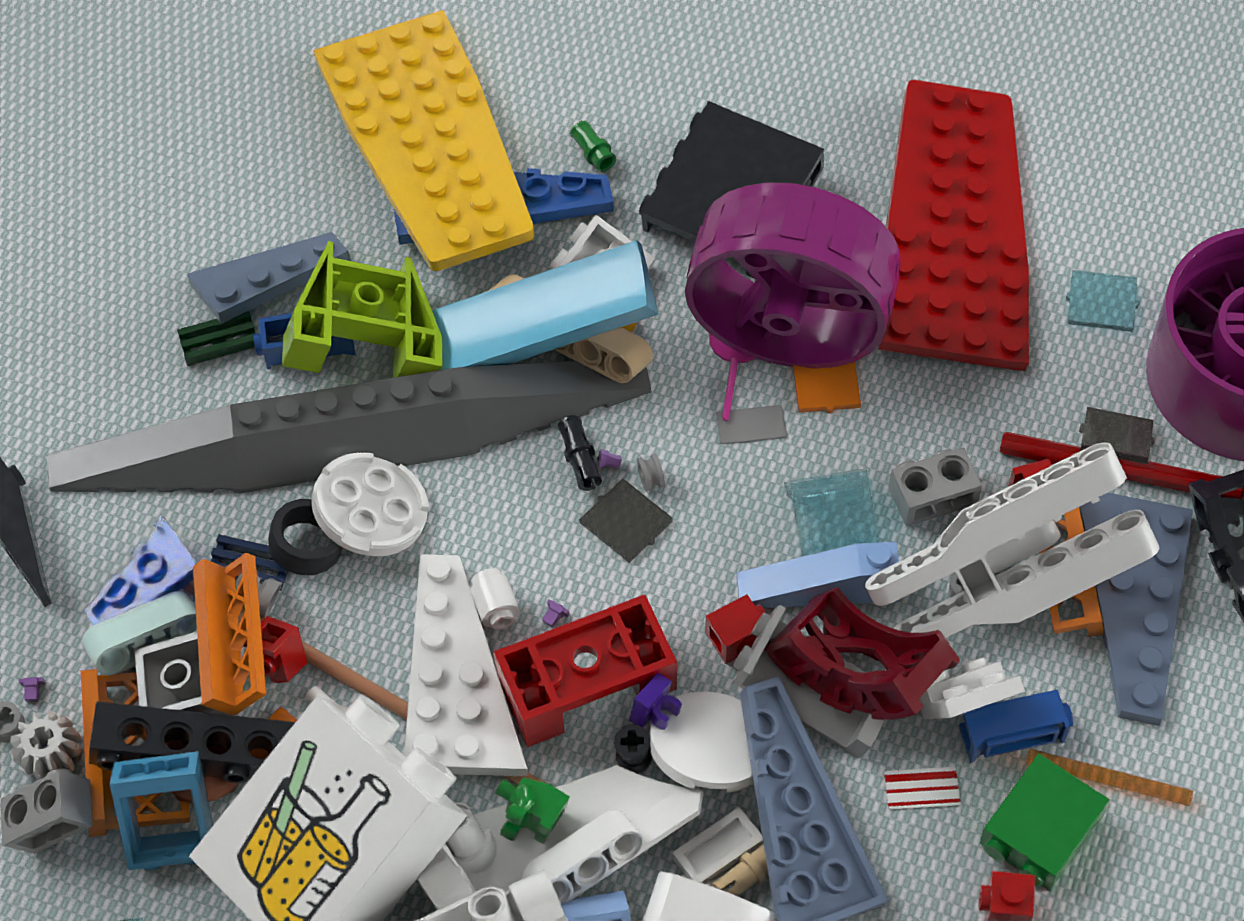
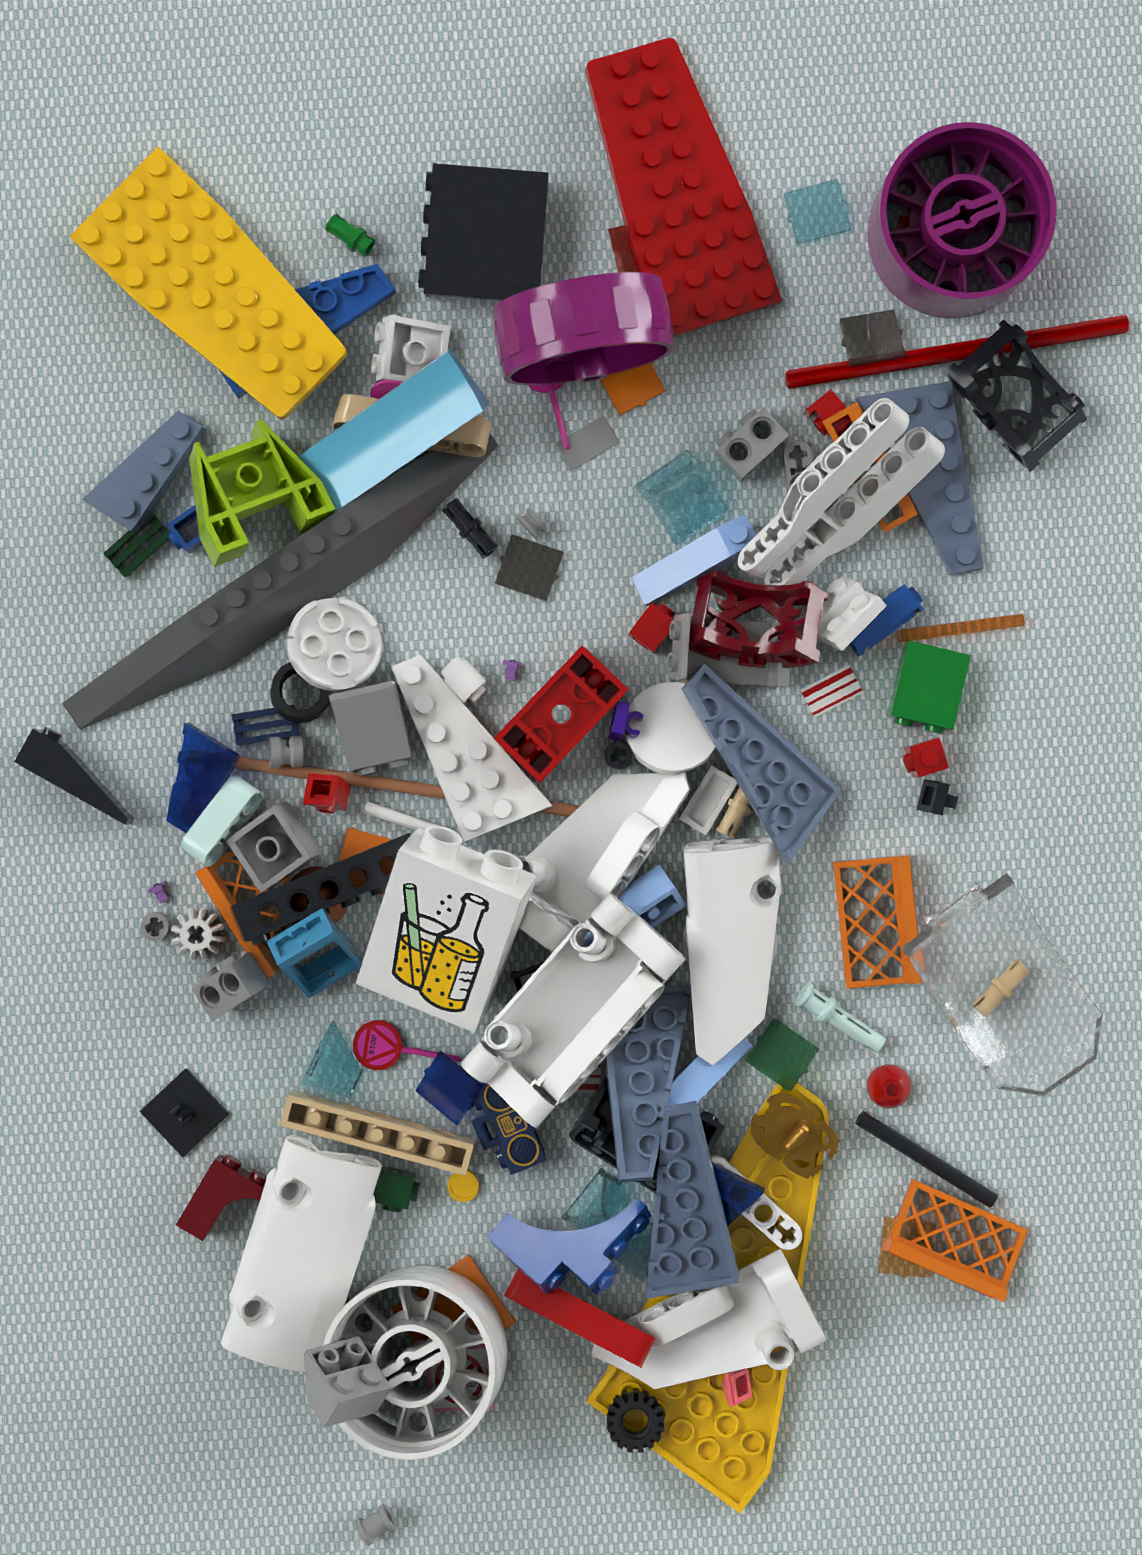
camera: 25 degrees left, 30 degrees up
(222, 638) = (289, 808): orange fence -> none
(365, 598) = (372, 727): none -> light grey slope
(531, 806) = (571, 835): green piece -> none
(607, 459) = (494, 523): medium lavender piece -> none

